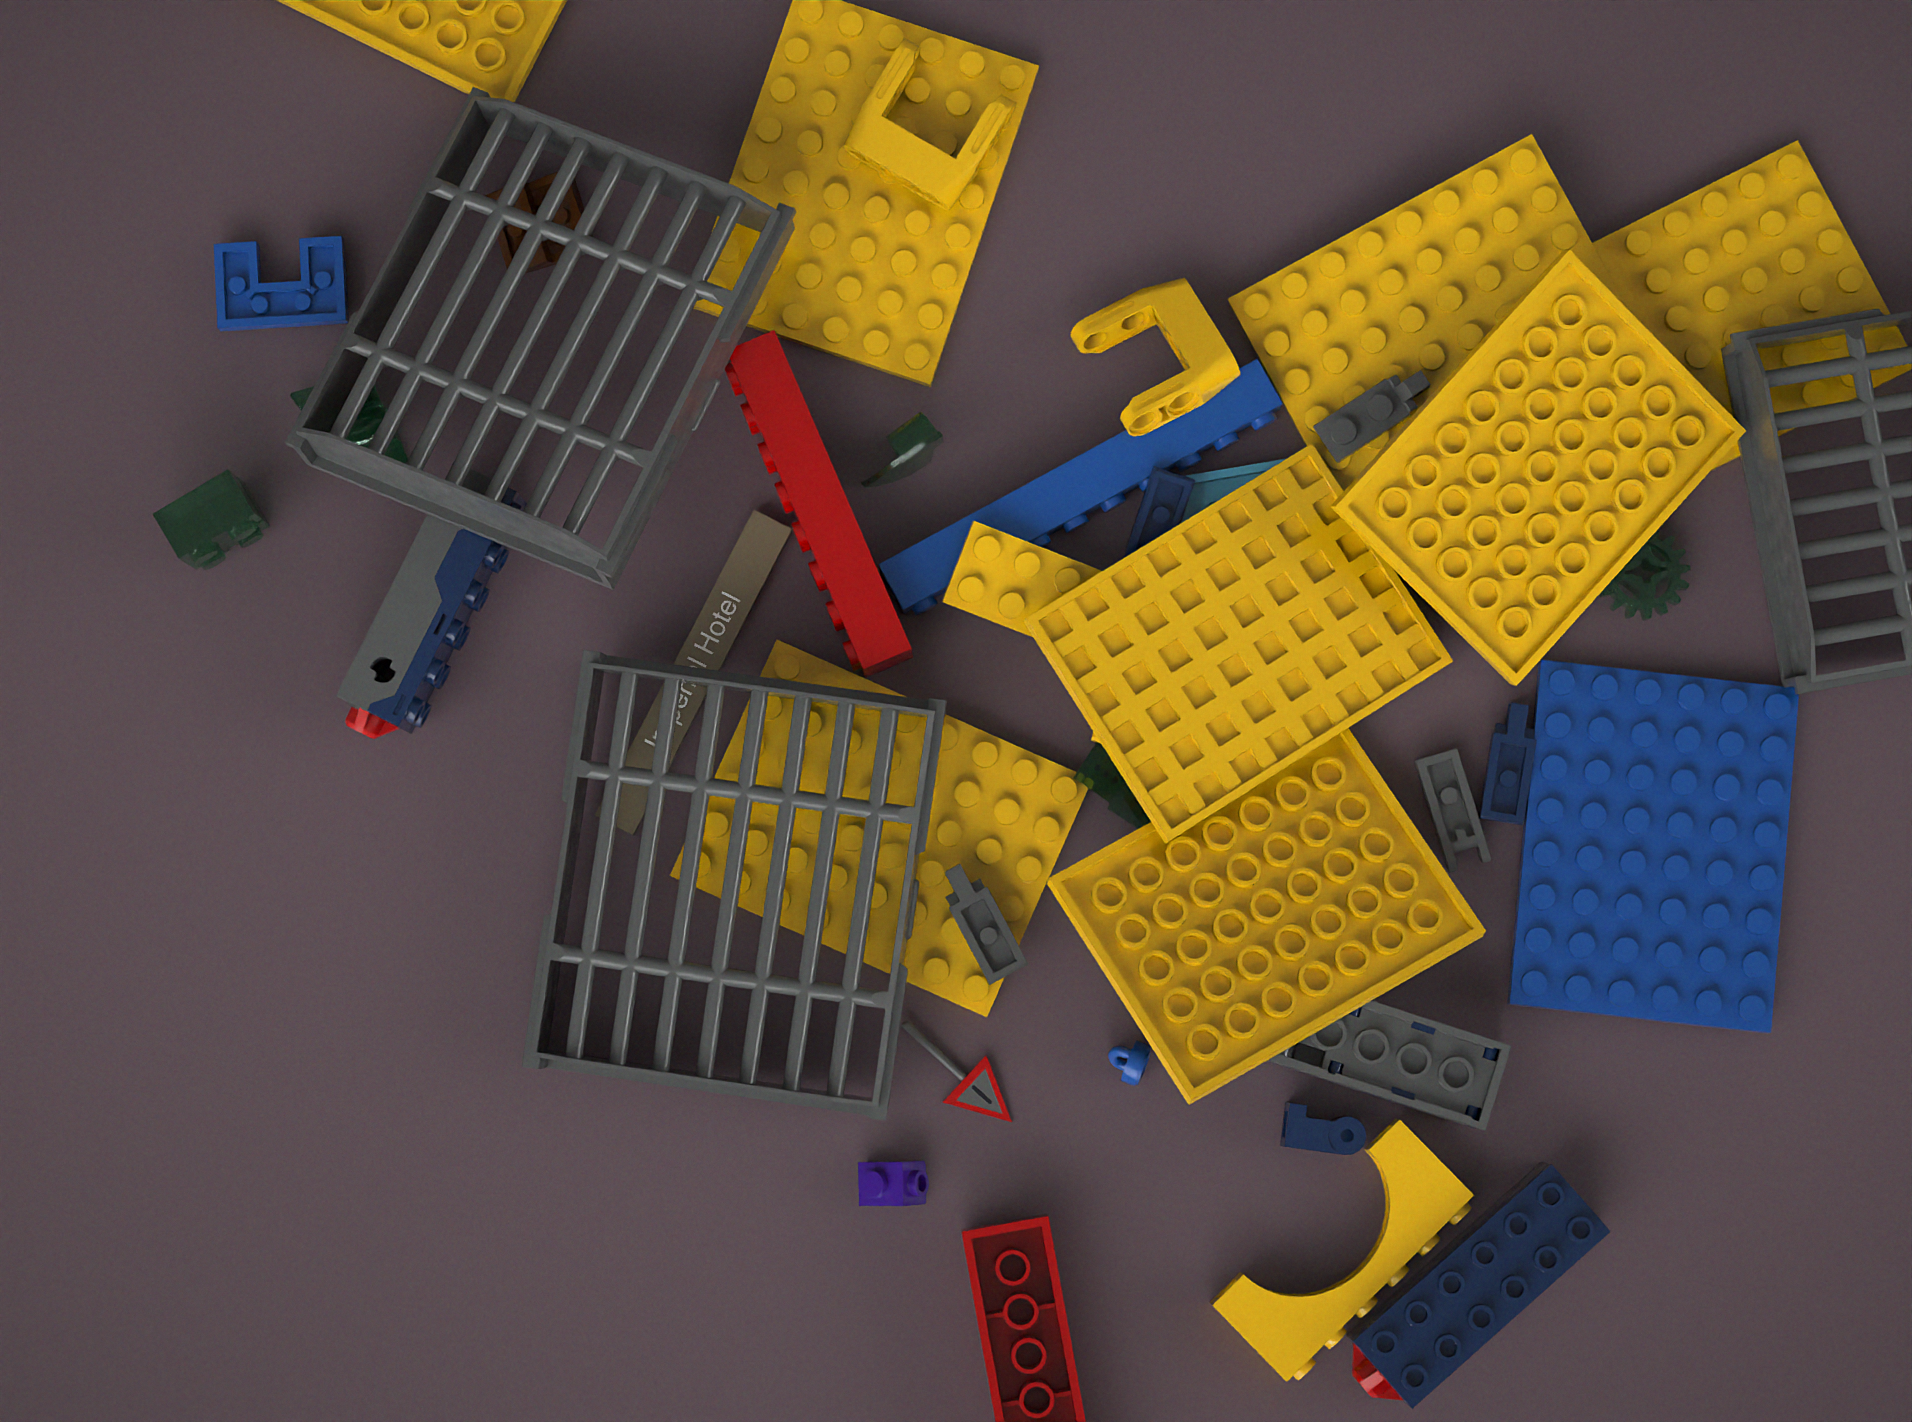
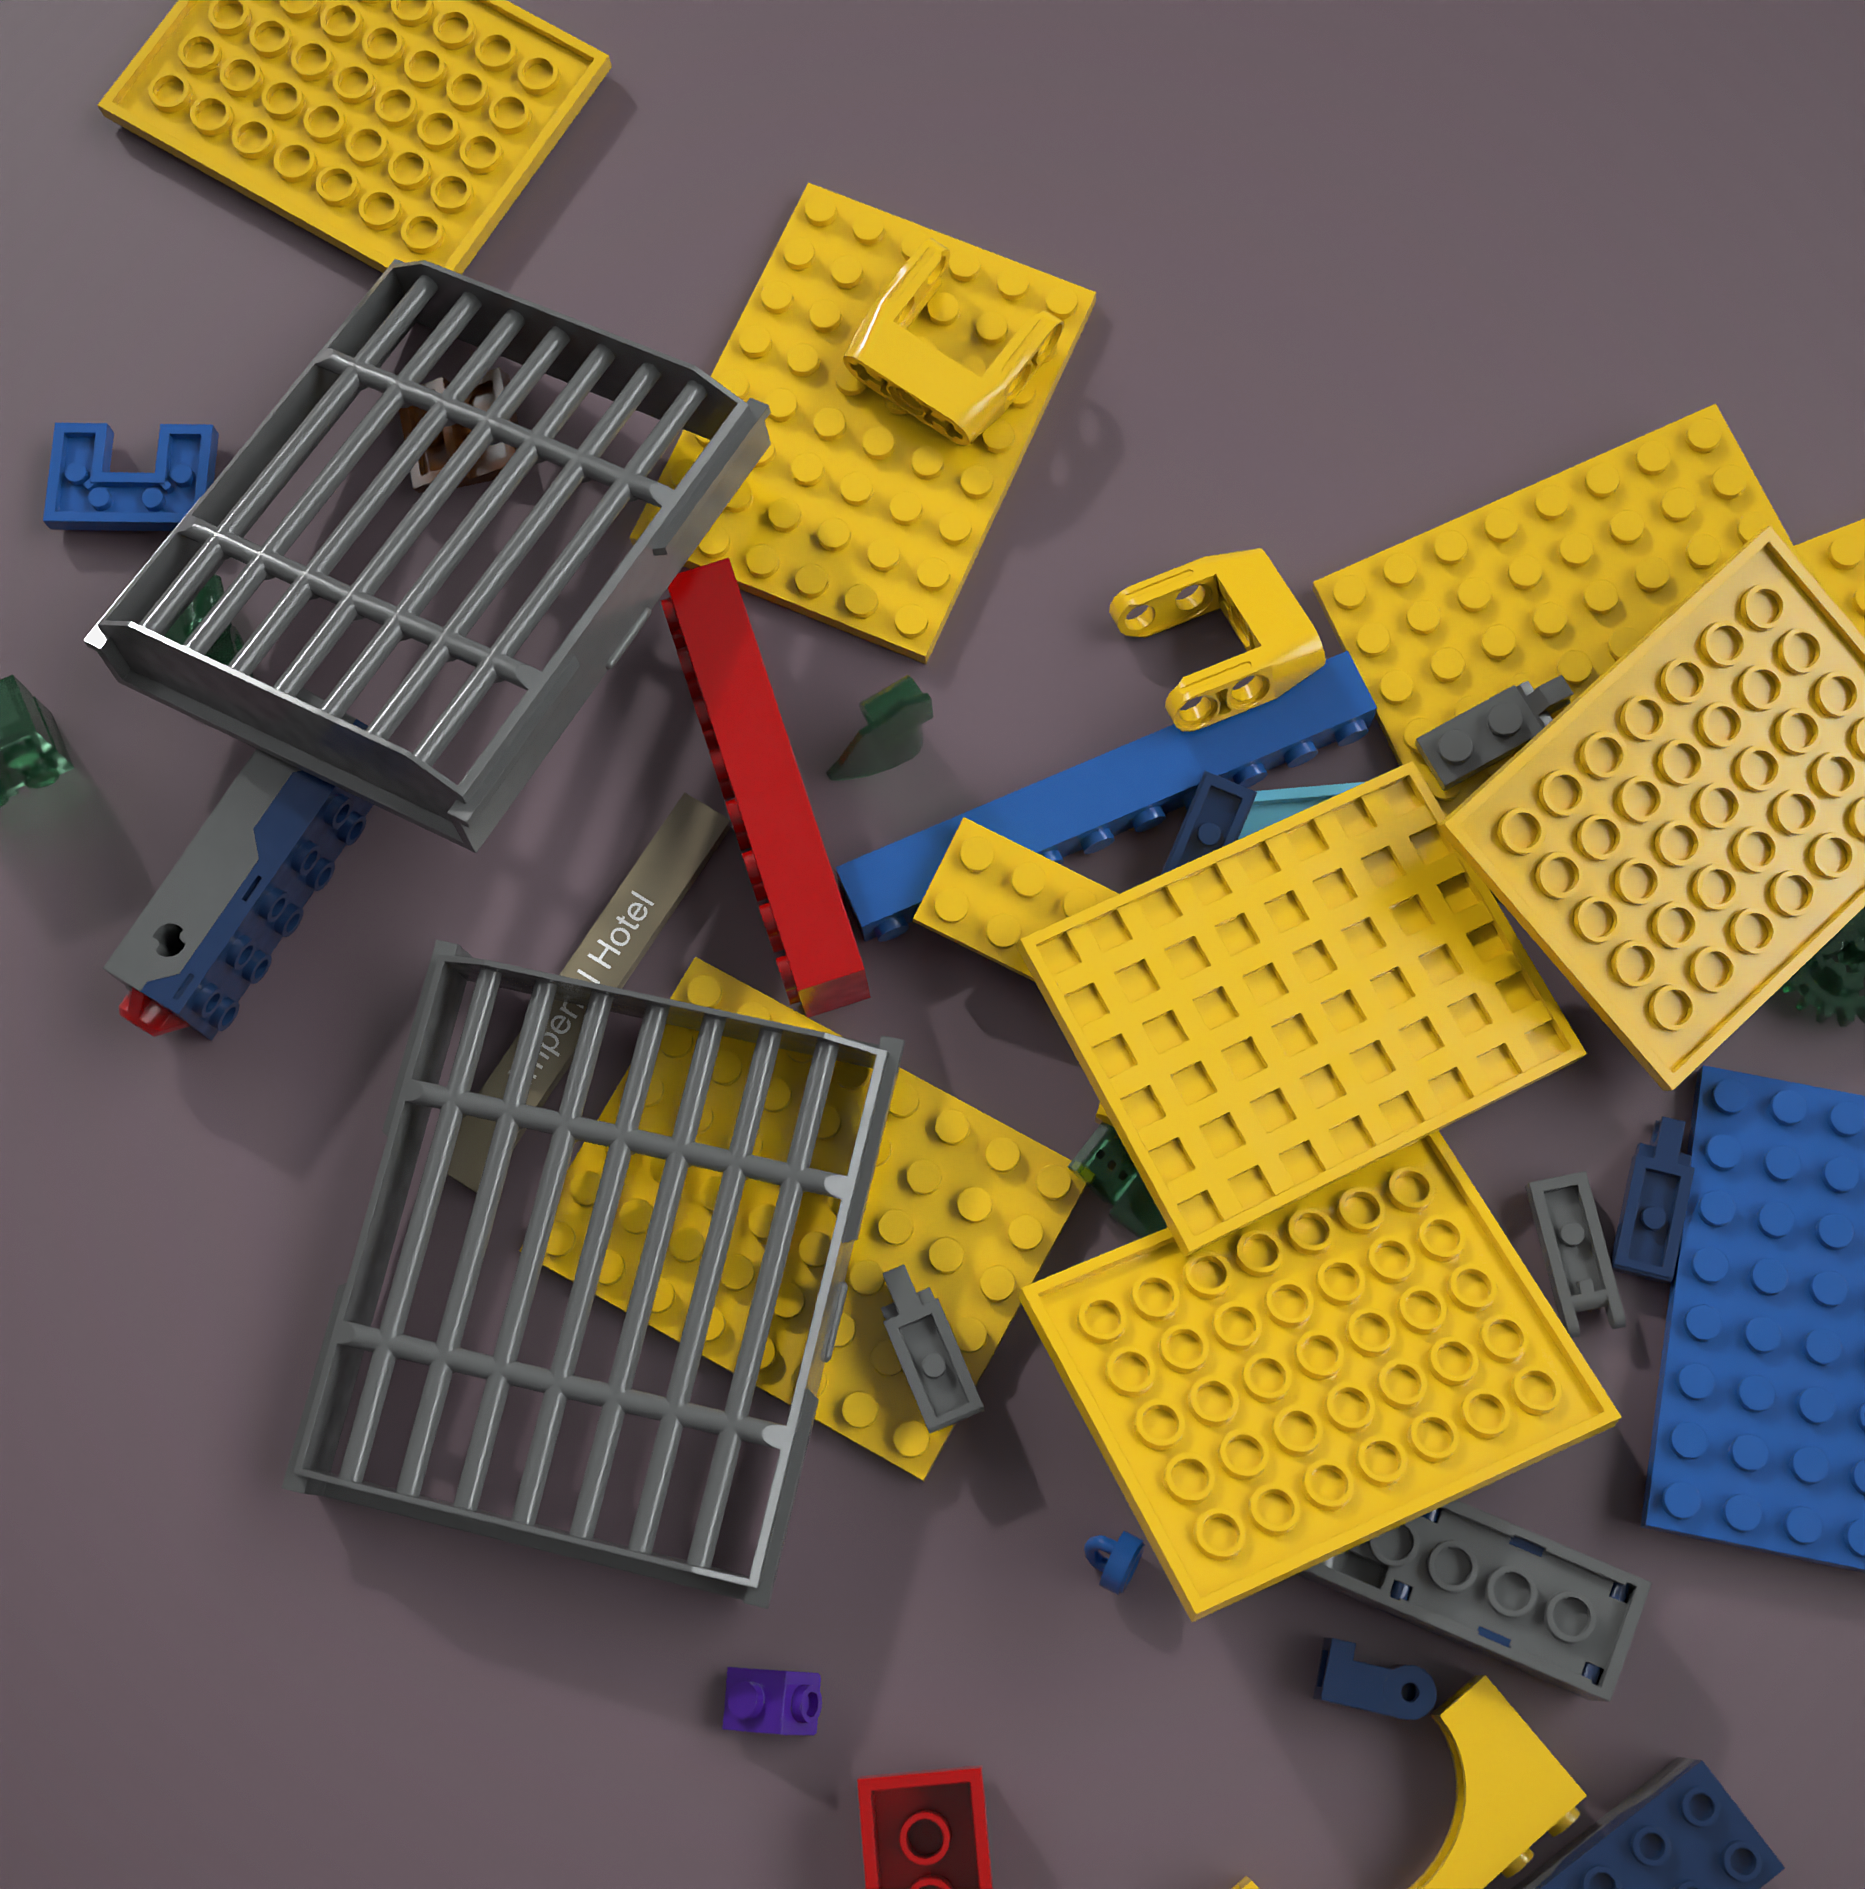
camera: 10 degrees right, 10 degrees down
(976, 1090) = (902, 1580): piece -> none

